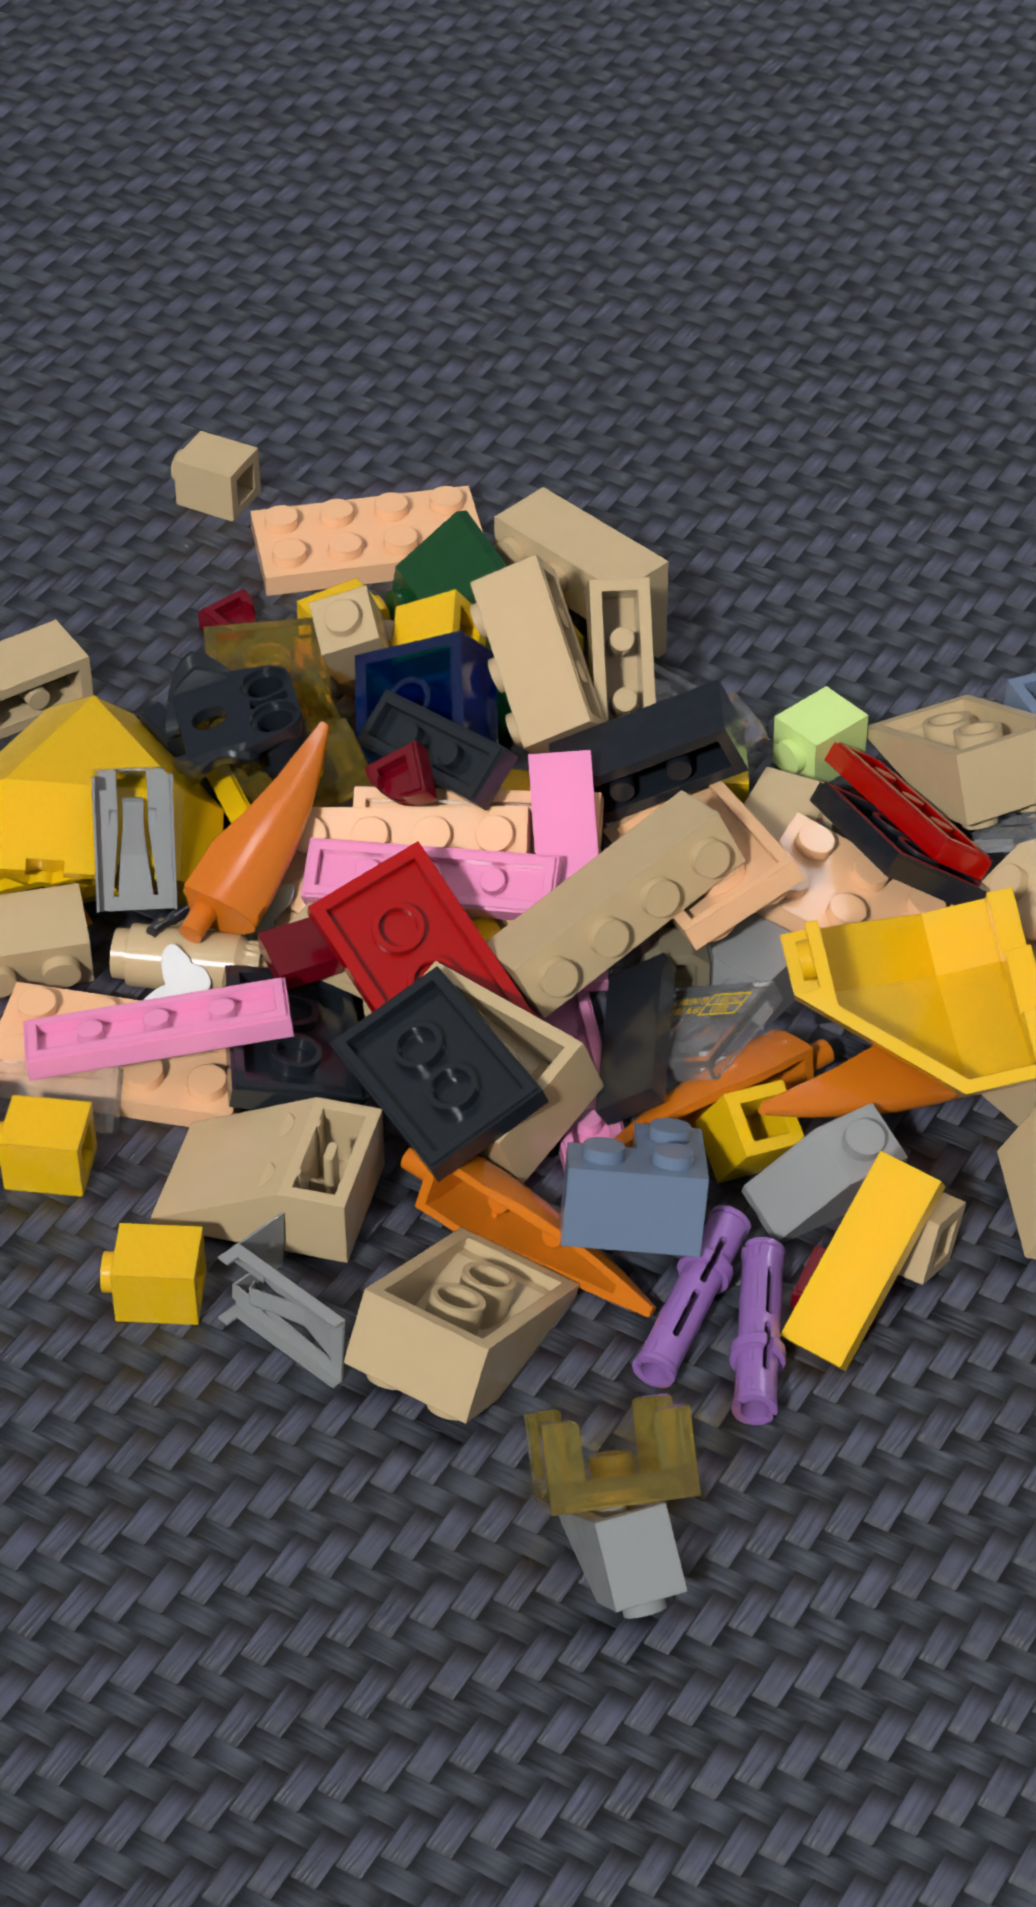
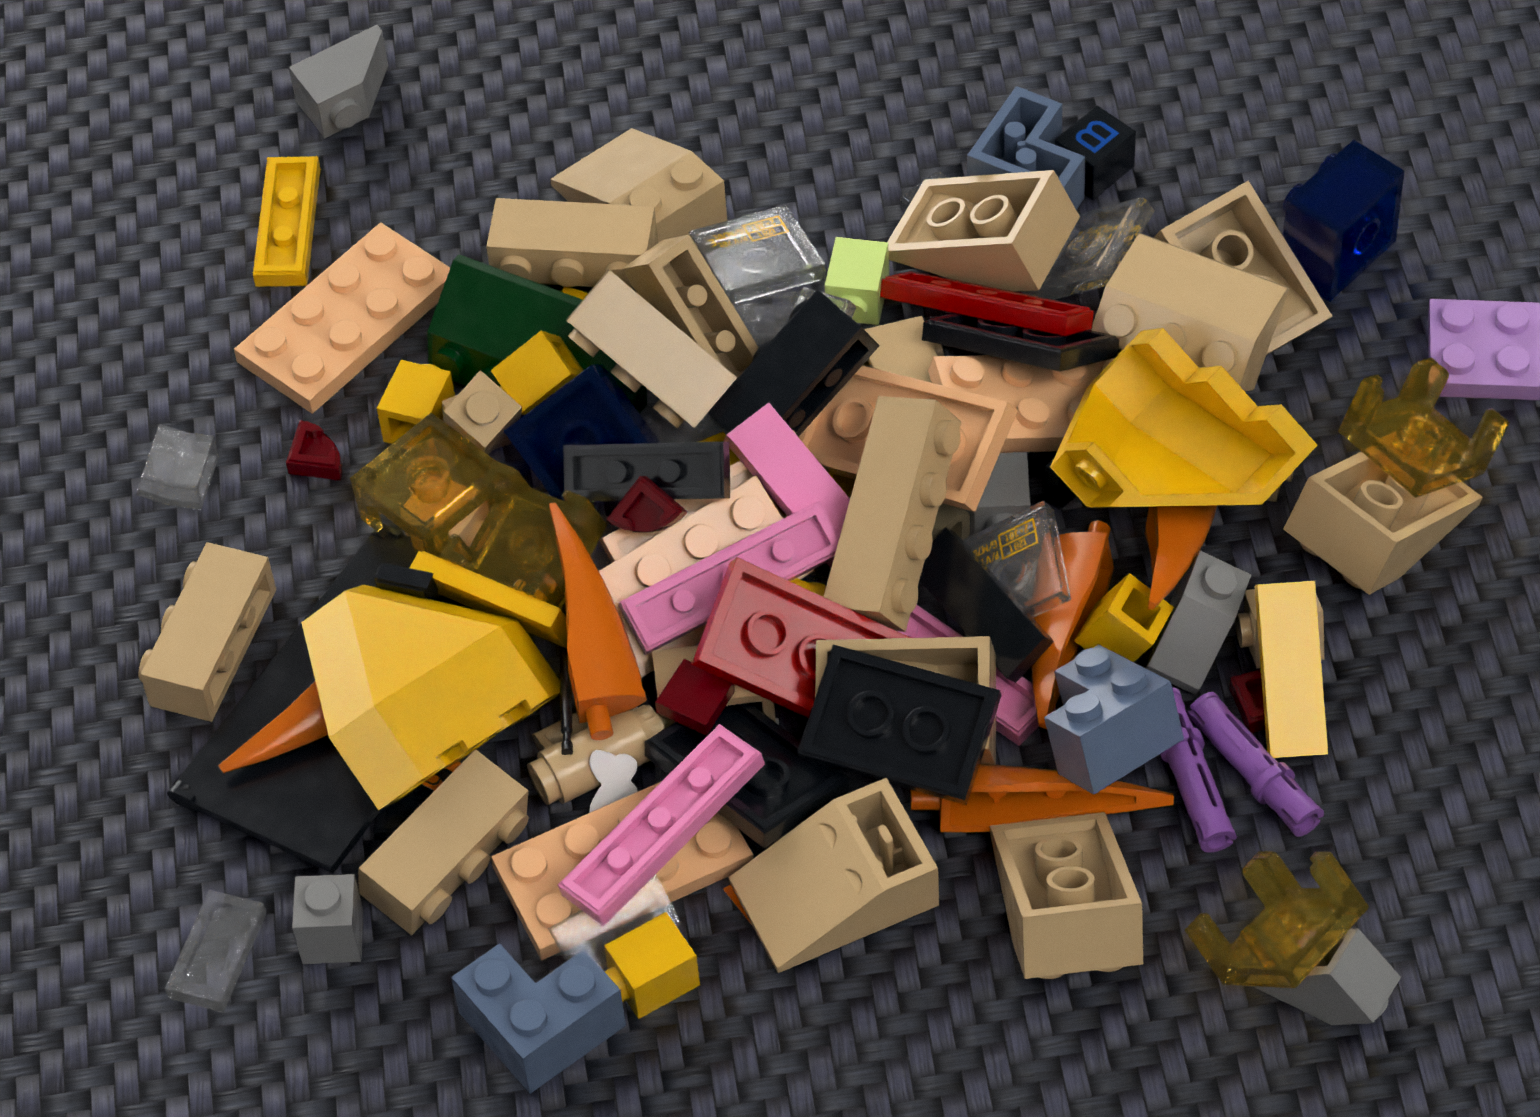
camera: 35 degrees left, 10 degrees up
(112, 569) = (179, 468): none -> clear piece
(134, 874) = (513, 656): light grey piece -> none
(156, 1273) = (831, 1005): yellow brick -> none
(216, 476) = (175, 334): tan brick -> none
(260, 712) = (430, 534): black piece -> none
(263, 1310) = (930, 983): light grey piece -> none
(400, 449) = (286, 221): none -> yellow tile
(553, 372) = (341, 81): none -> light grey slope
(715, 586) = (648, 173): none -> tan slope
(759, 669) = (759, 254): none -> clear tile

